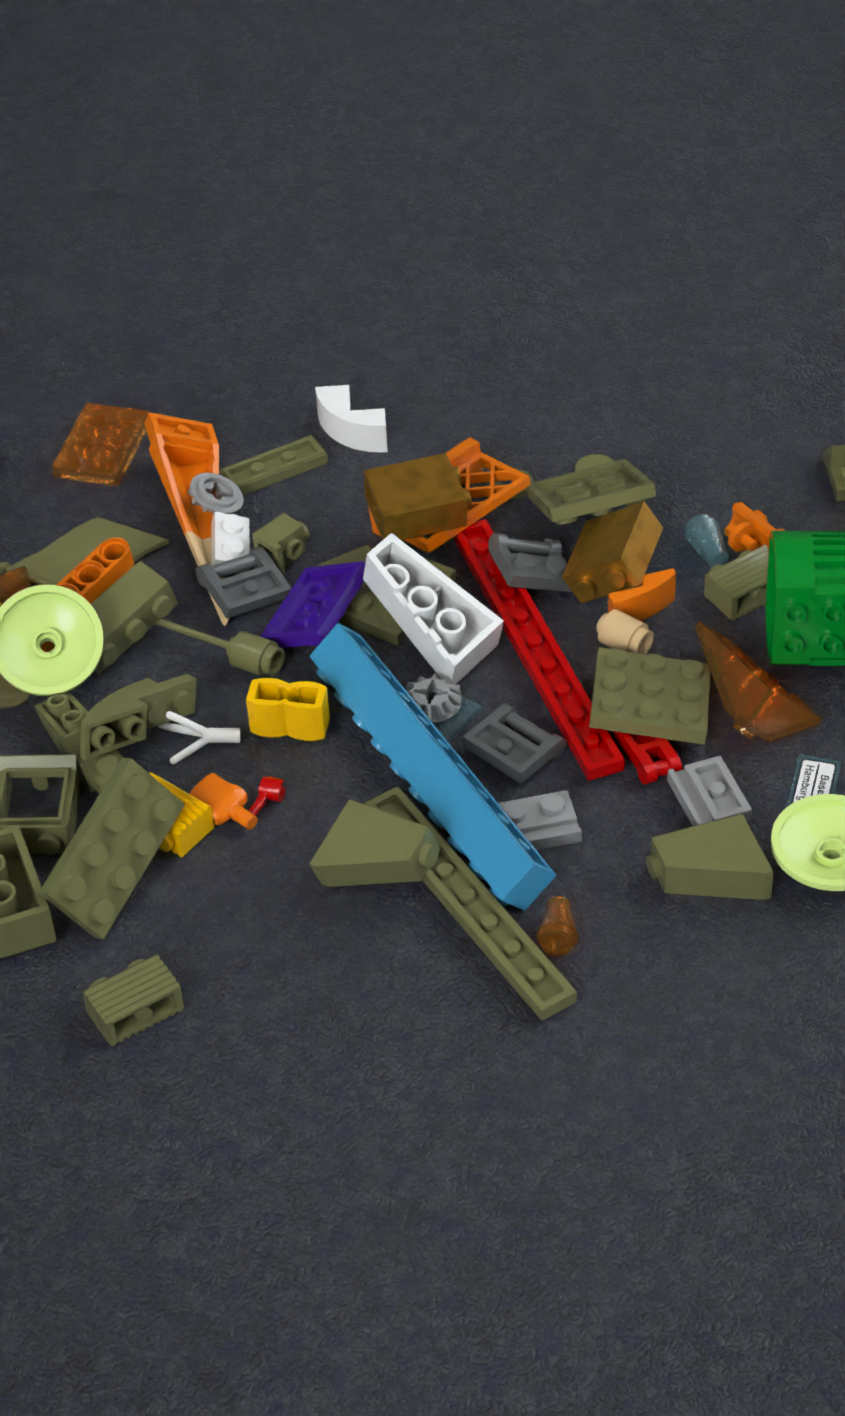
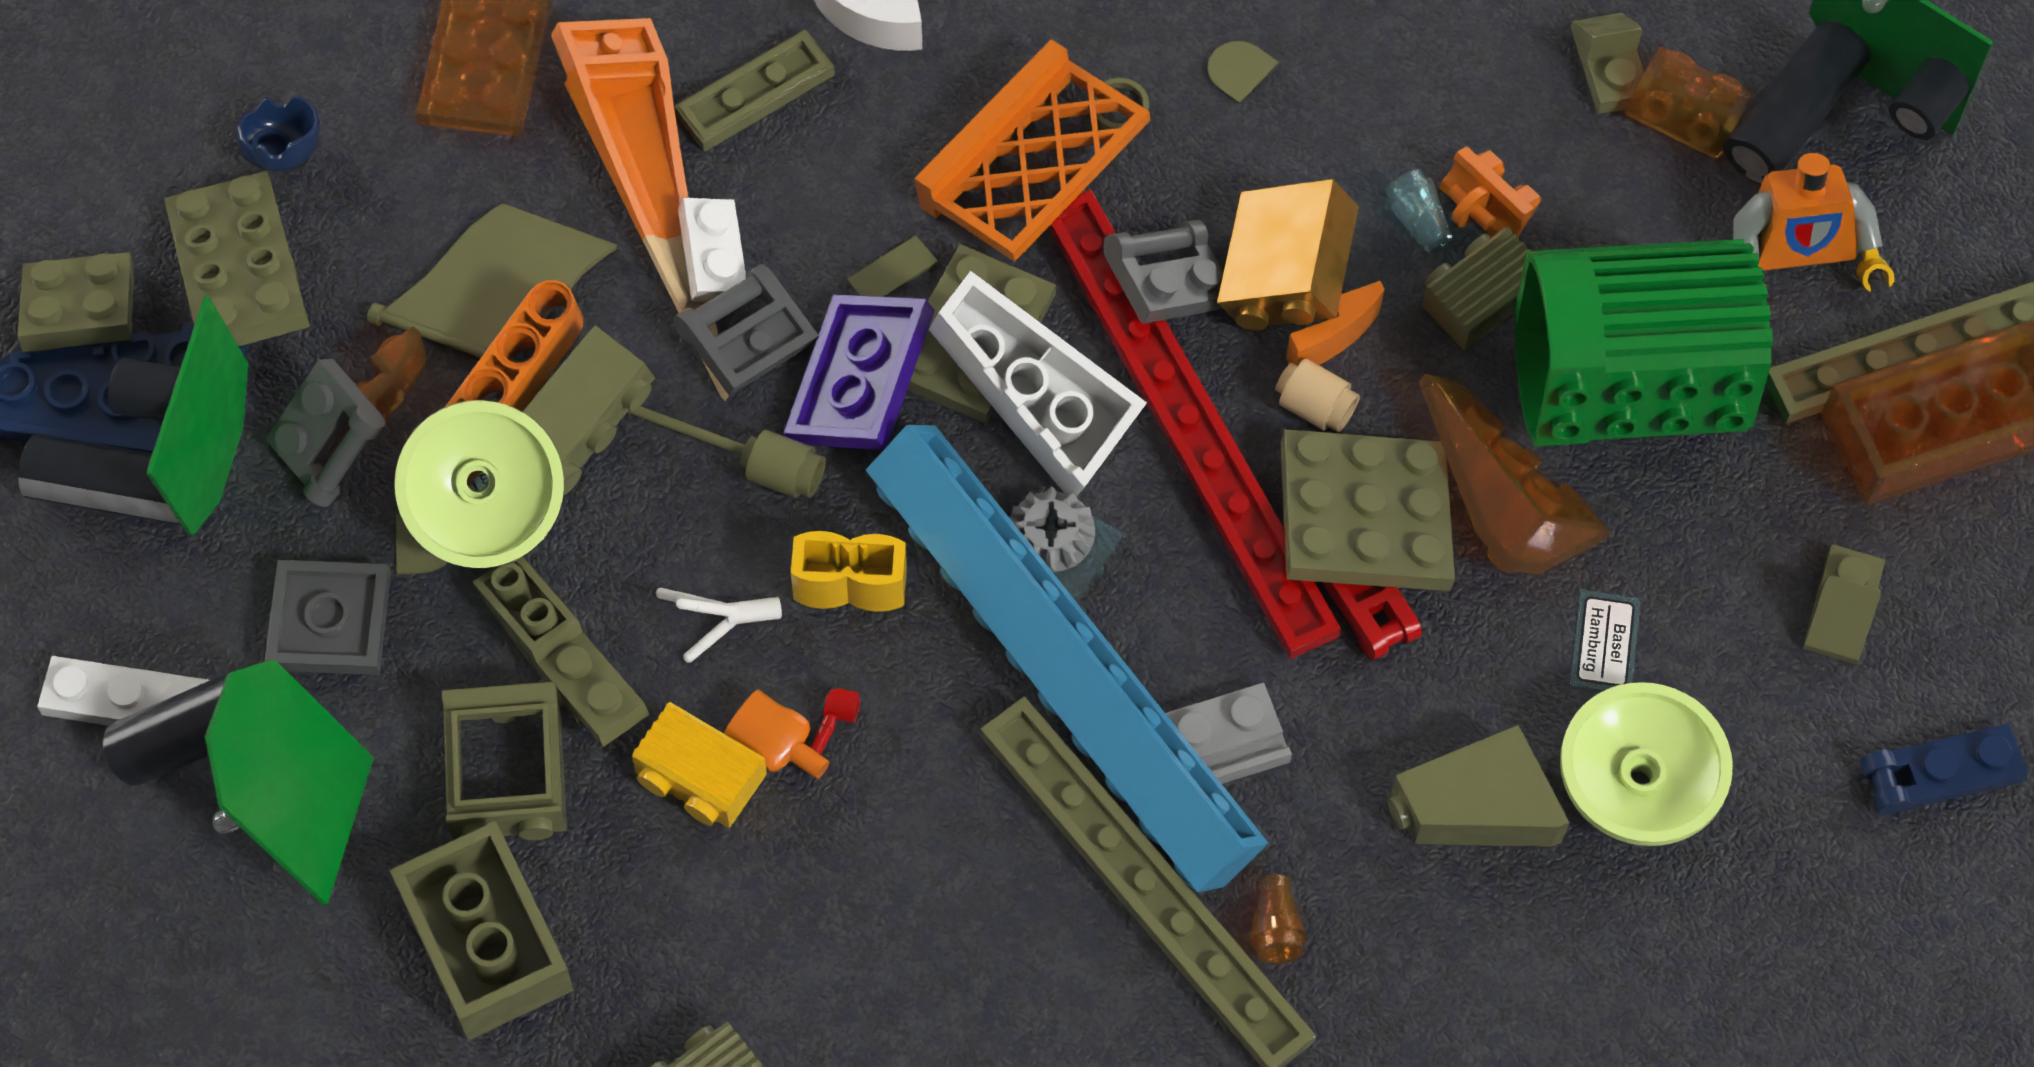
camera: 10 degrees left, 20 degrees up
(112, 848) = (640, 856): olive plate -> none
(132, 710) = (618, 603): olive slope -> none
(228, 494) = (691, 150): light grey gear -> none
(282, 540) = (792, 247): olive brick -> none
(373, 849) = (1008, 817): olive slope -> none
(417, 497) = (991, 176): pearl gold brick -> none
(509, 750) = (1171, 614): dark grey plate -> none
(591, 491) = (1243, 136): olive plate -> none
(708, 791) = (1464, 679): light grey plate -> none

